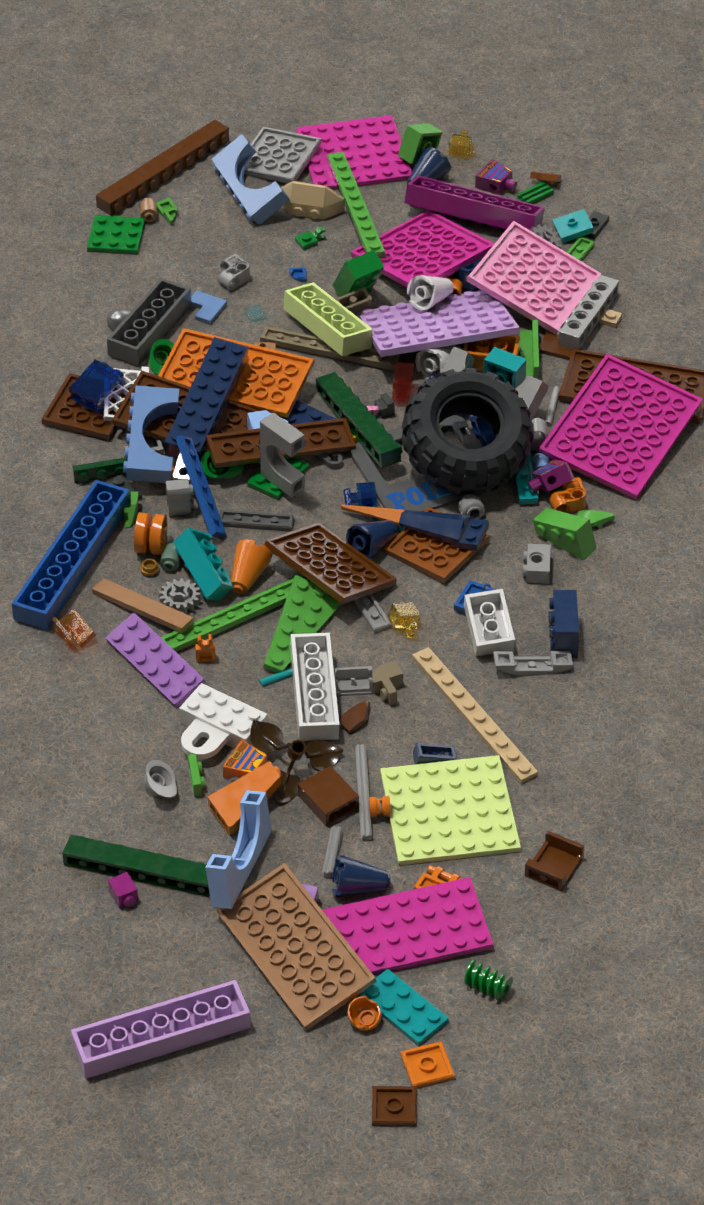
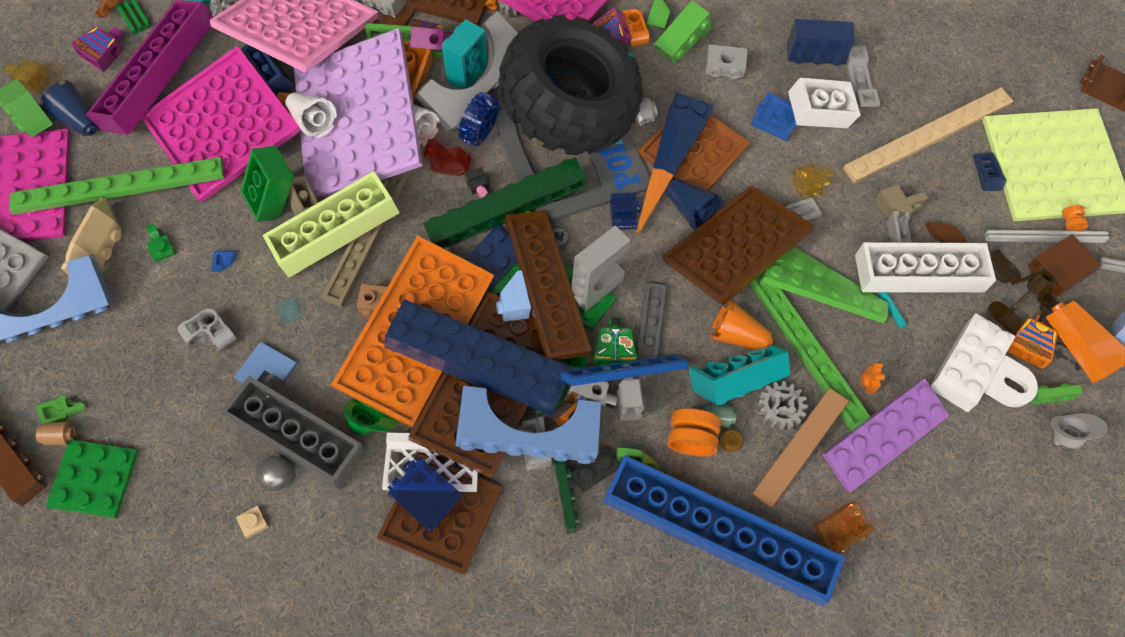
camera: 90 degrees left, 20 degrees up
(83, 314) = (252, 522): none -> tan plate
(230, 493) = (614, 344): none -> green torso
(523, 346) = (422, 31): none -> magenta torso

